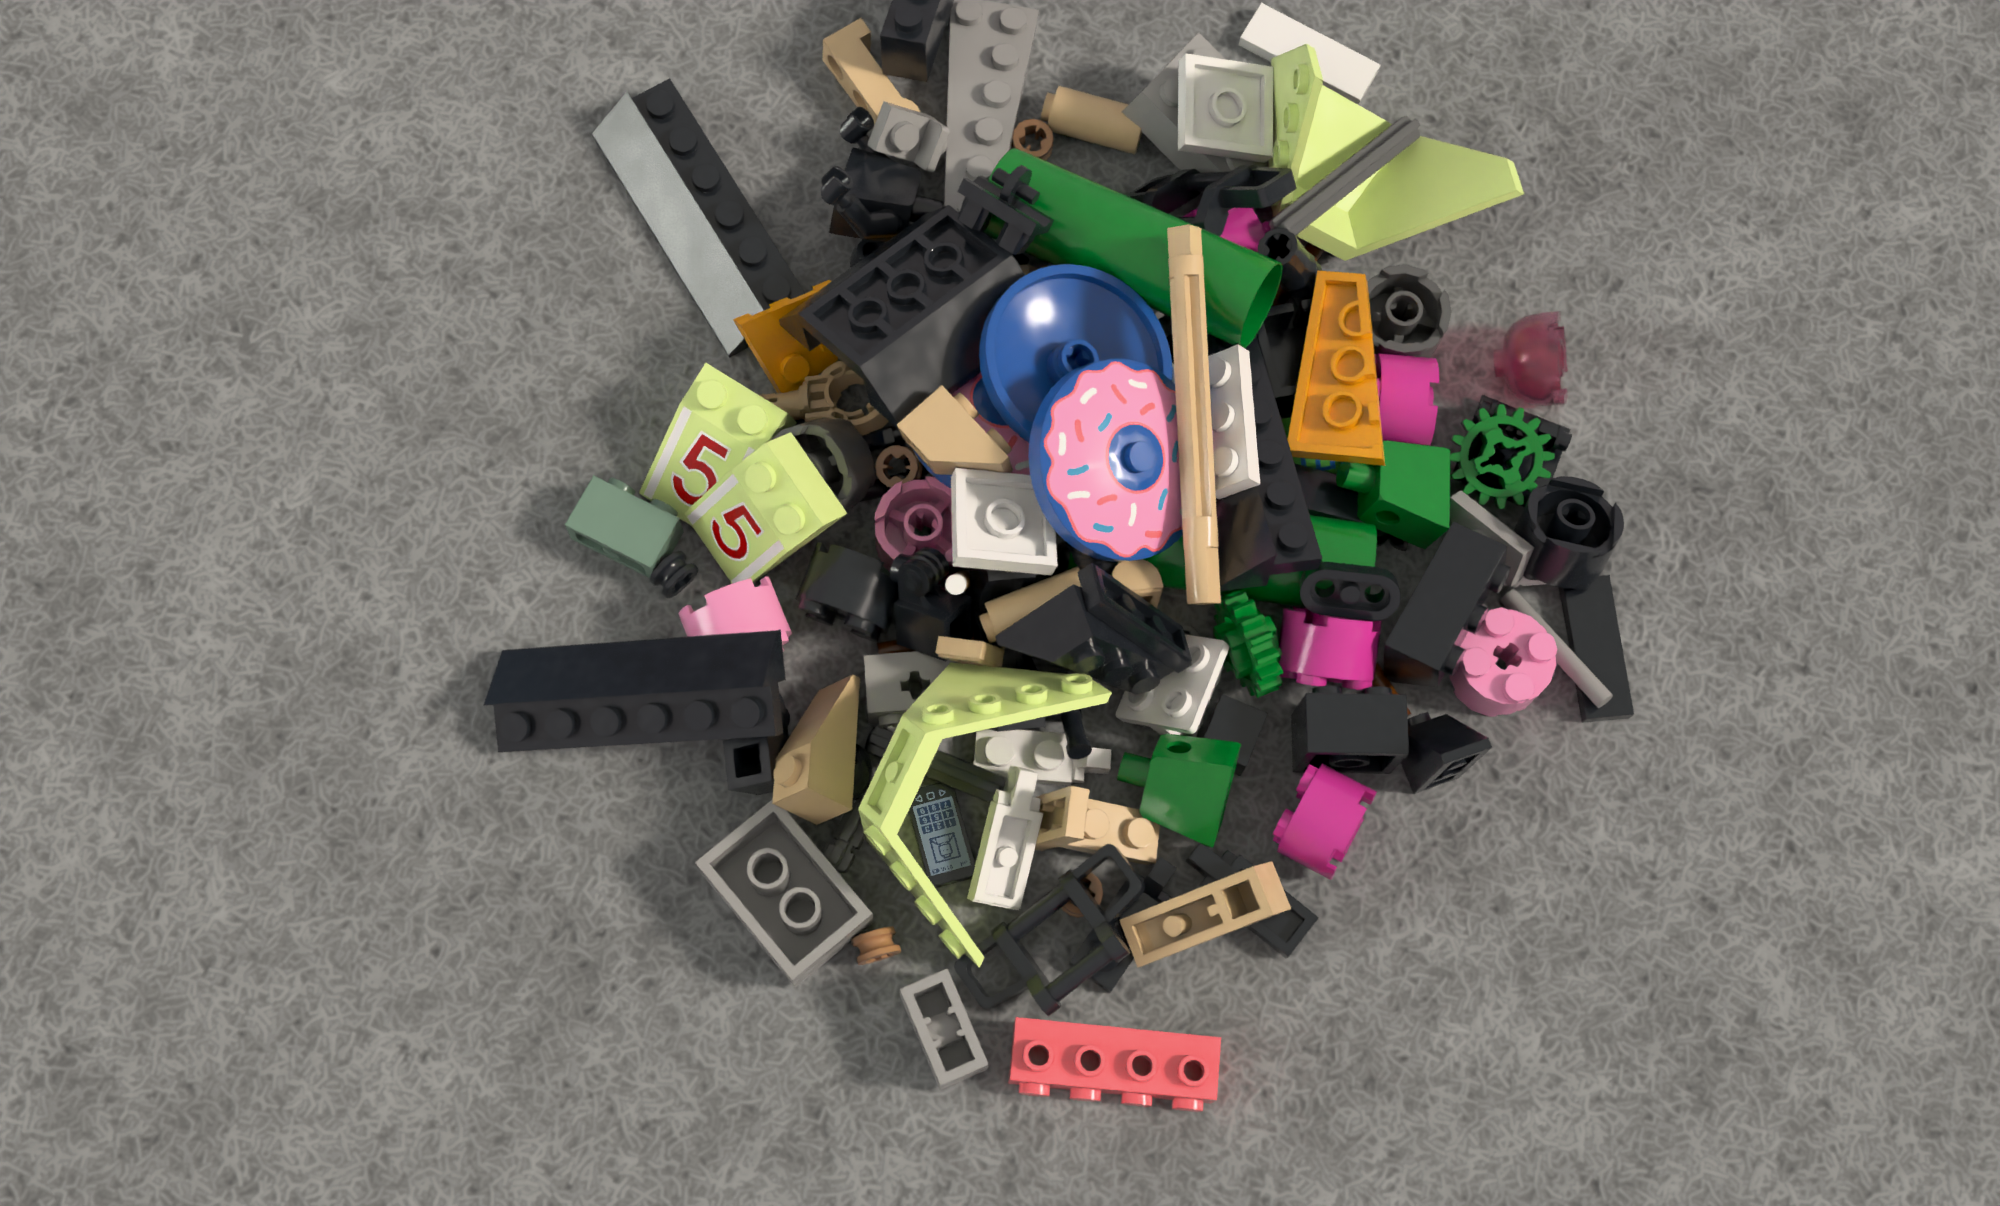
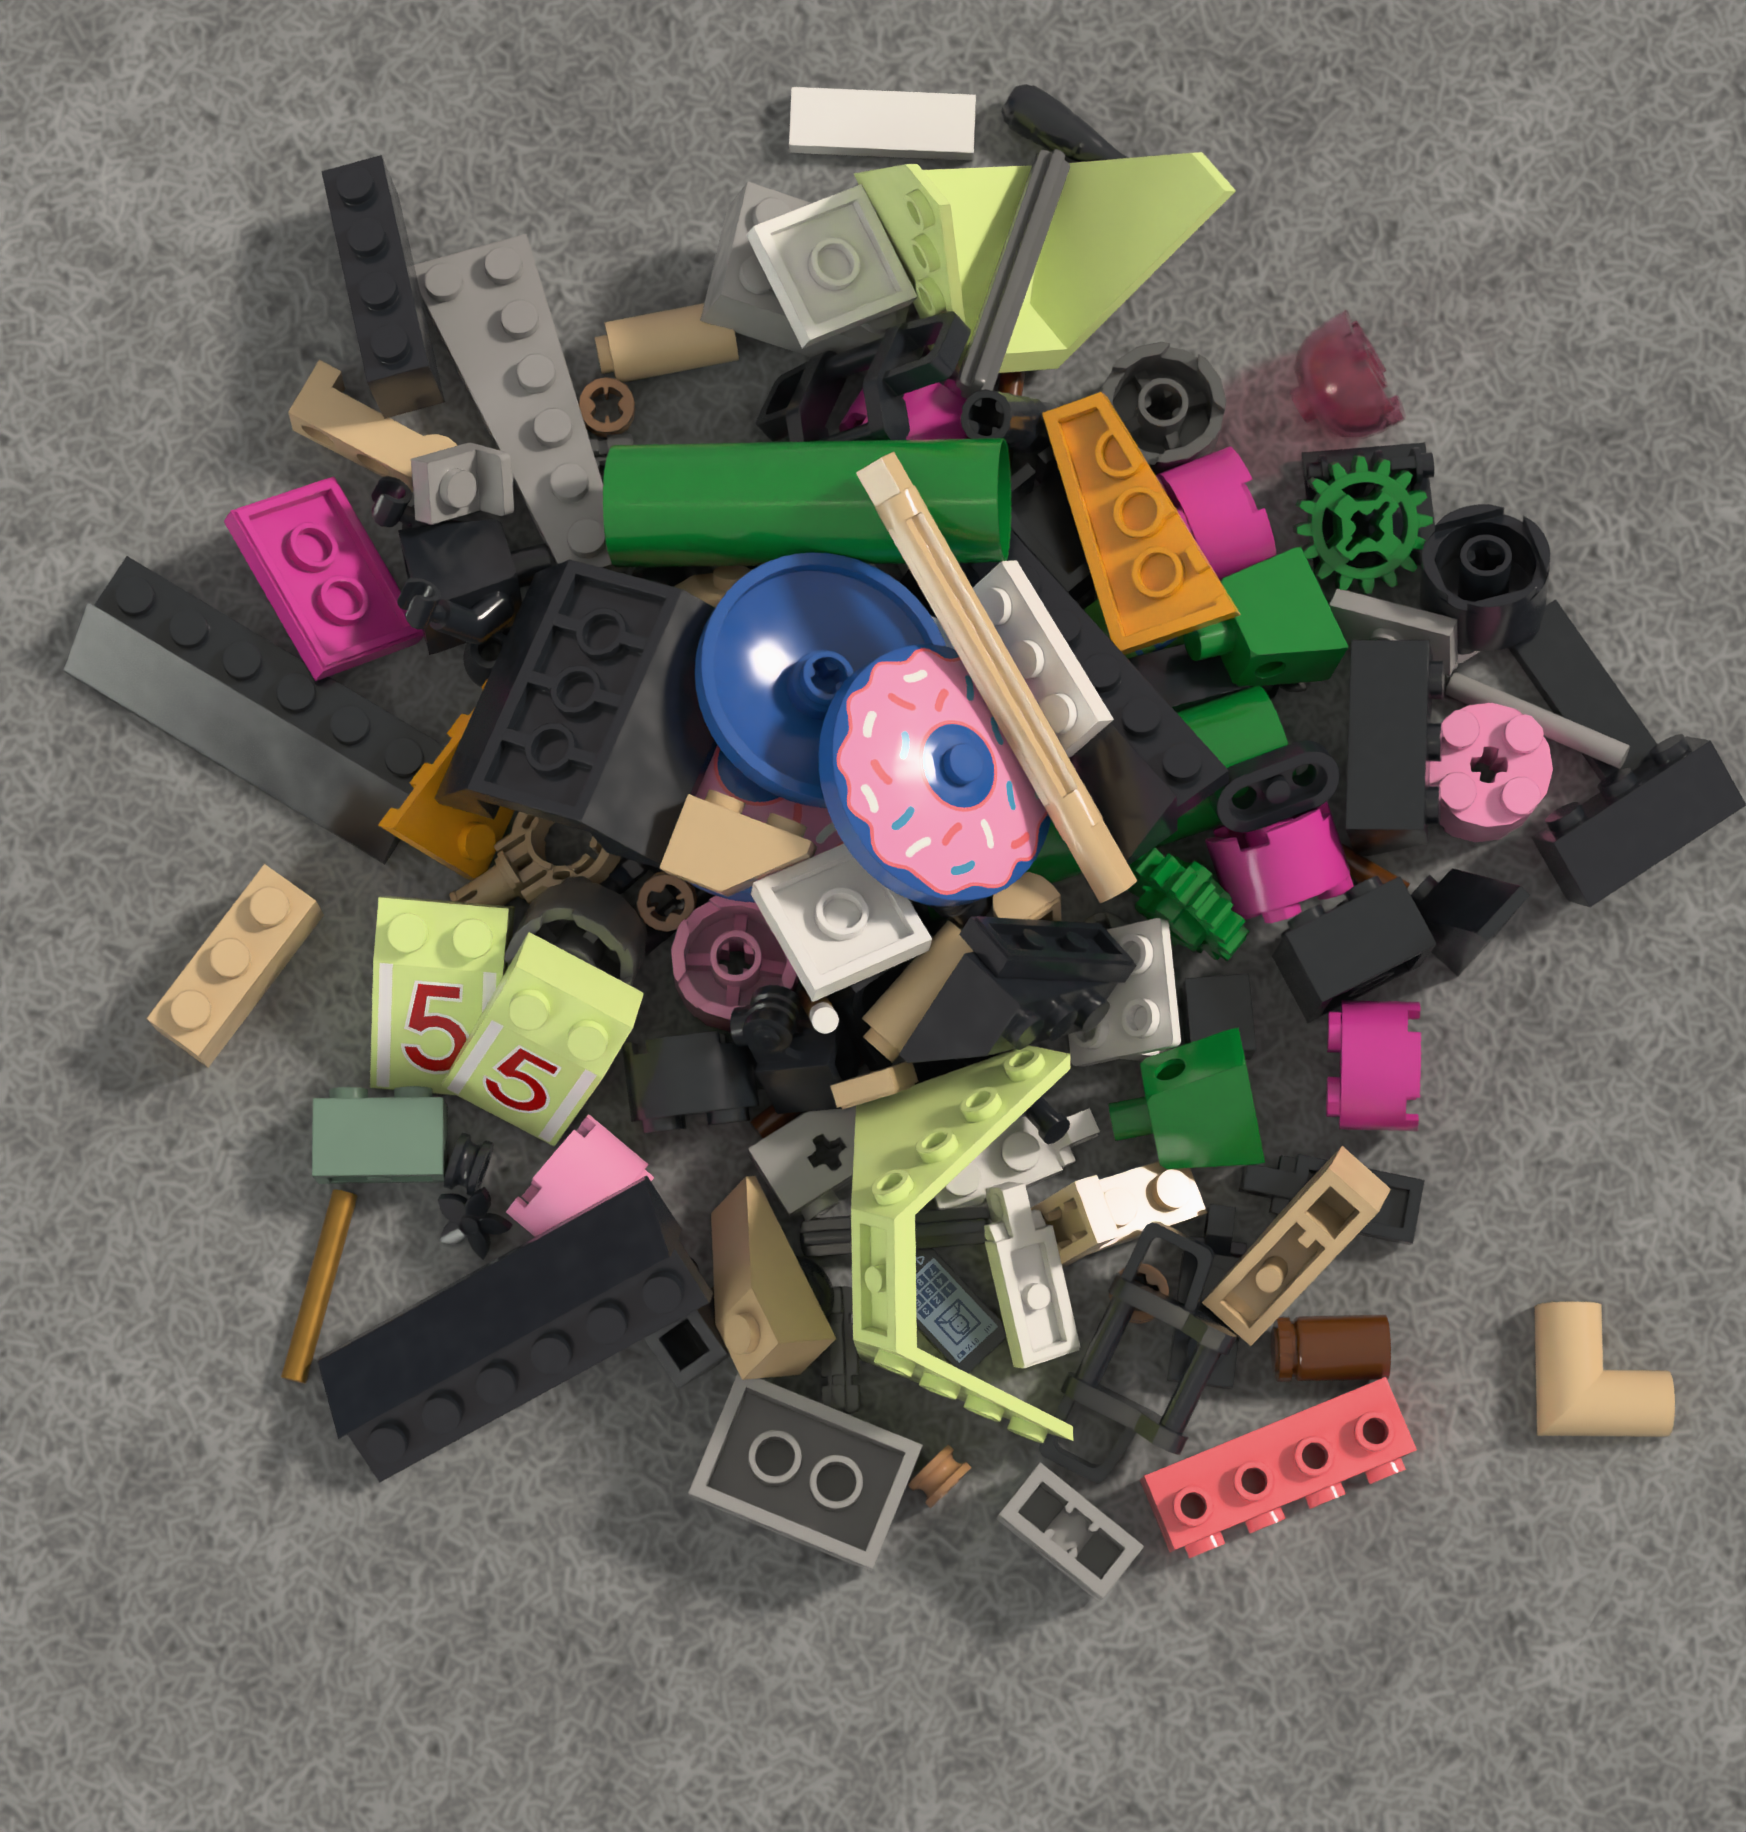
camera: 25 degrees left, 5 degrees up
(532, 604) = (319, 1286): none -> pearl gold bar
(594, 368) = (236, 965): none -> tan brick
(656, 611) = (471, 1220): none -> black plant
(787, 153) = (323, 577): none -> dark pink tile
(987, 199) = (644, 527): black hips -> none
(1193, 999) = (1331, 1348): none -> reddish brown piece
(1353, 1124) = (1579, 1395): none -> tan brick
(1419, 102) = (1054, 126): none -> black piece
(1594, 747) = (1637, 819): none -> black brick

